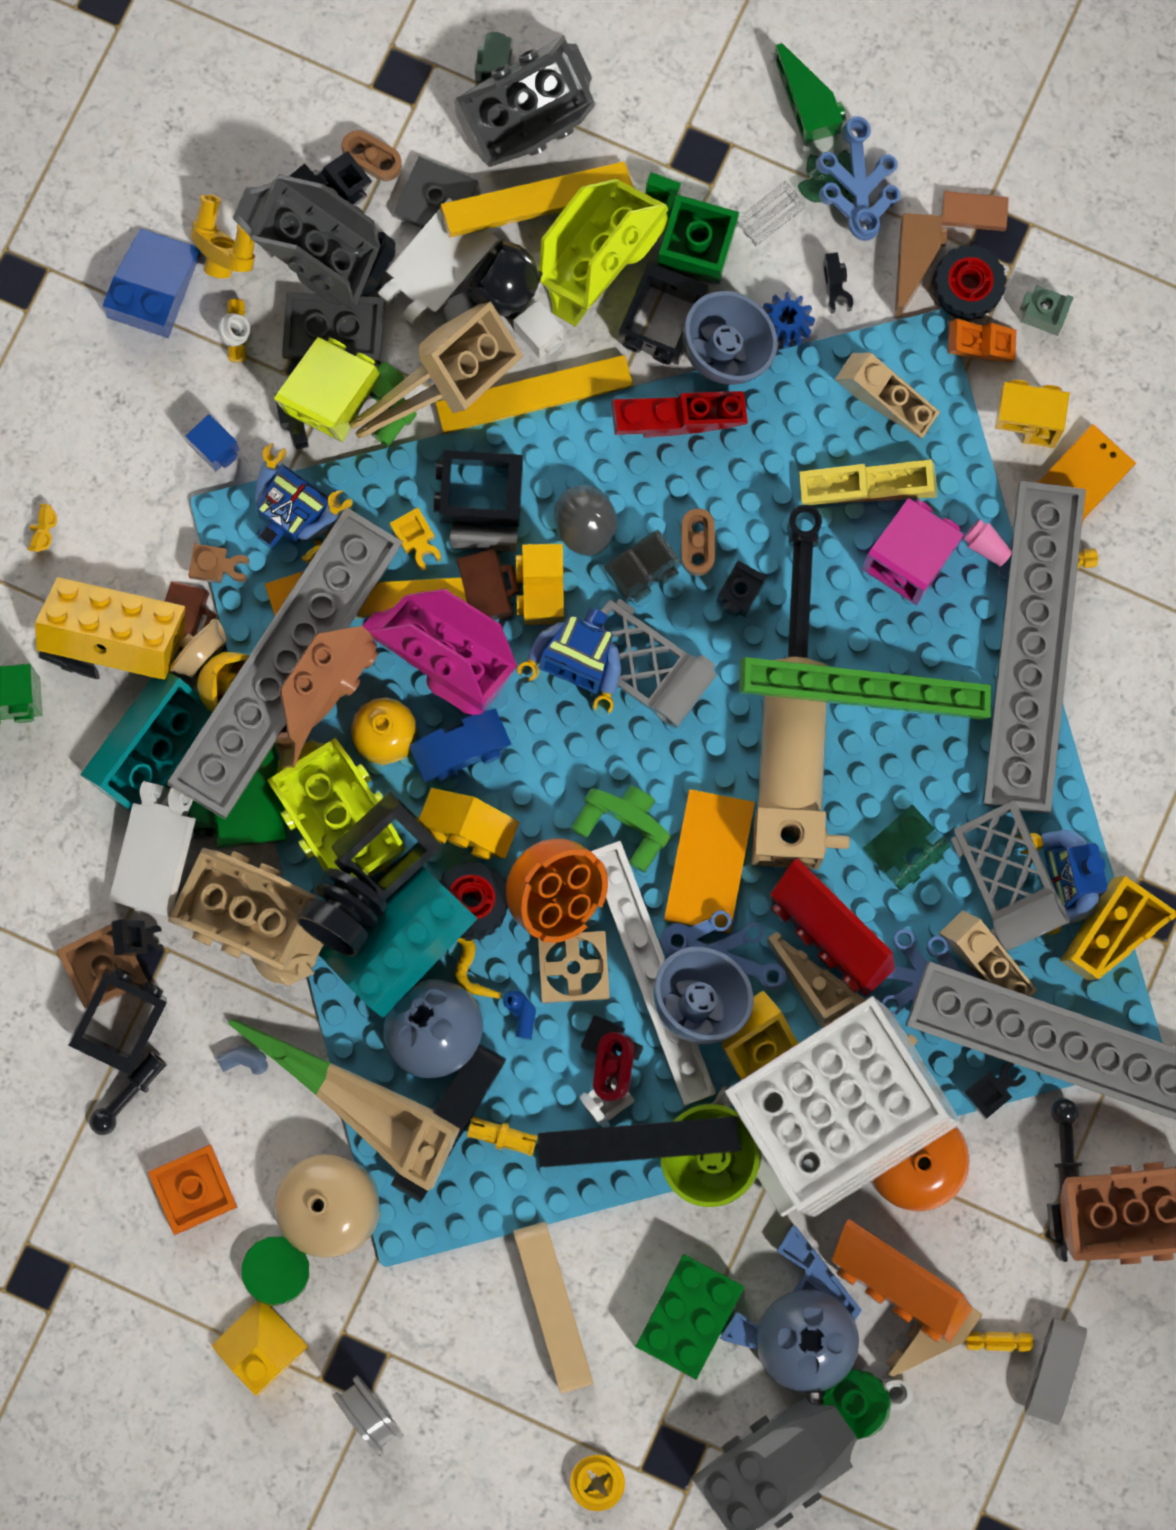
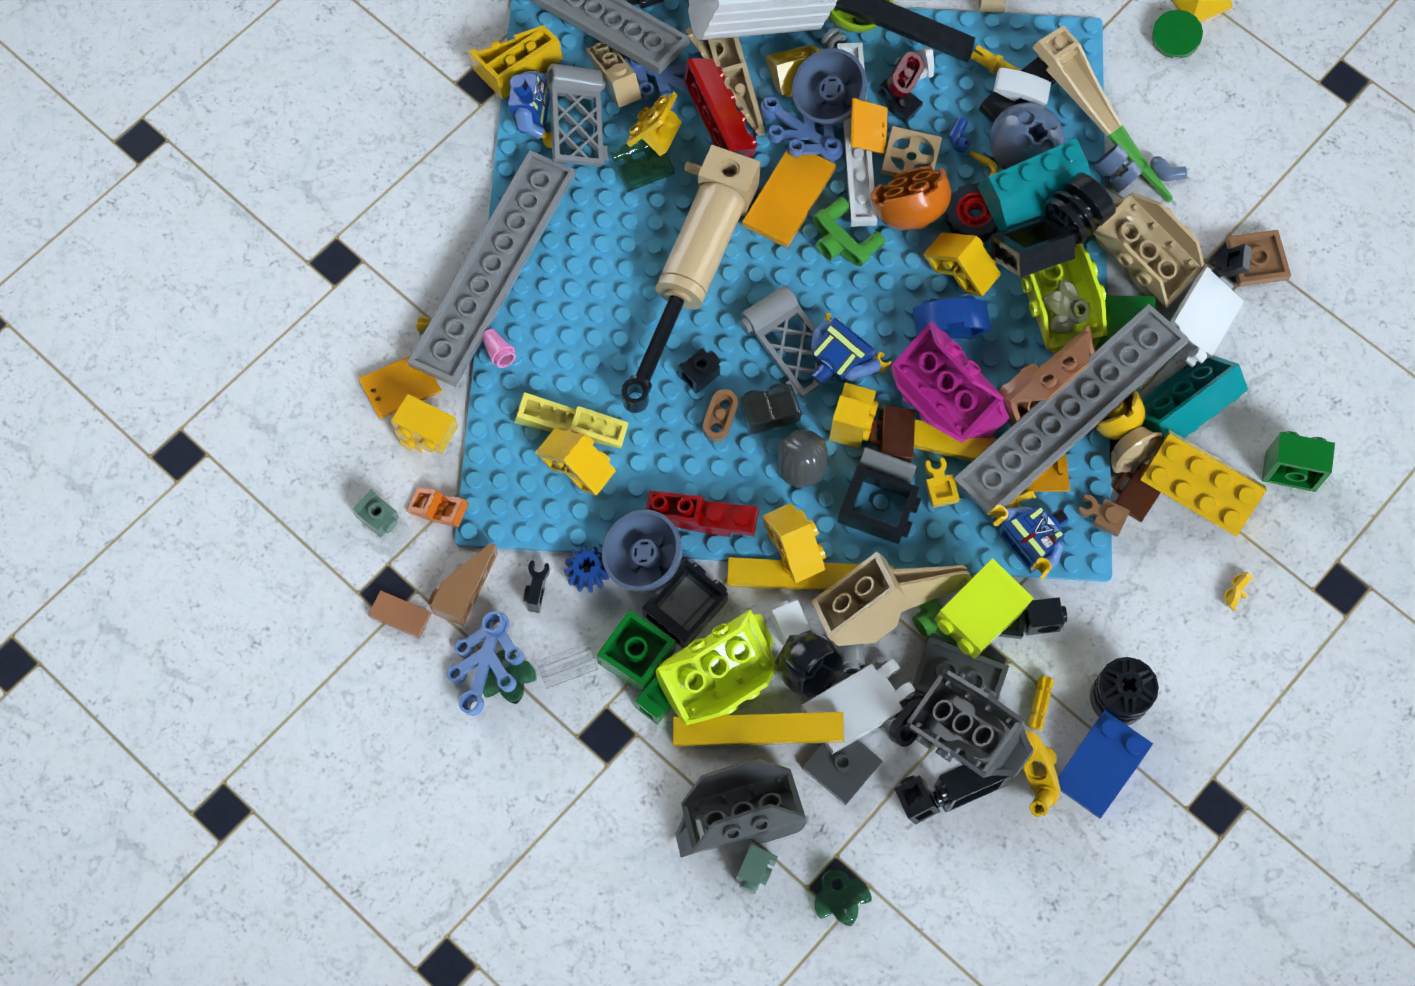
camera: 160 degrees left, 10 degrees down
(103, 1051) = (1268, 196): black window -> none
(104, 1119) = (1248, 176): black pin -> none
(153, 375) = (1109, 695): none -> black wheel
(192, 1190) = (1224, 98): orange plate -> none
(213, 443) = (1084, 608): blue brick -> none
(238, 324) = (1039, 692): white plate -> none
(256, 425) = (1045, 616): none -> black brick
(307, 1028) = (1111, 162): none -> sand blue wheel
(328, 784) = (1063, 305): none -> olive plate
(348, 1210) = (1132, 57): tan cylinder -> none
(373, 156) = (887, 816): medium nougat plate -> none
(383, 731) = (1005, 352): yellow cylinder -> none
(393, 59) = (843, 901): none -> clear green plate
(458, 1089) = (1019, 84): none -> white slope
(564, 407) = (795, 541): none -> yellow brick
(637, 962) = (868, 126): none -> light orange container
(810, 99) = (498, 740): green slope -> none
(845, 425) = (577, 458): none -> yellow brick
(864, 688) = (637, 253): bright green plate -> none
(886, 393) = (532, 482): tan slope -> none
(906, 889) = (656, 125): none -> yellow bracket
(912, 550) = (558, 353): dark pink slope -> none
(972, 263) = (424, 539): black wheel -> none

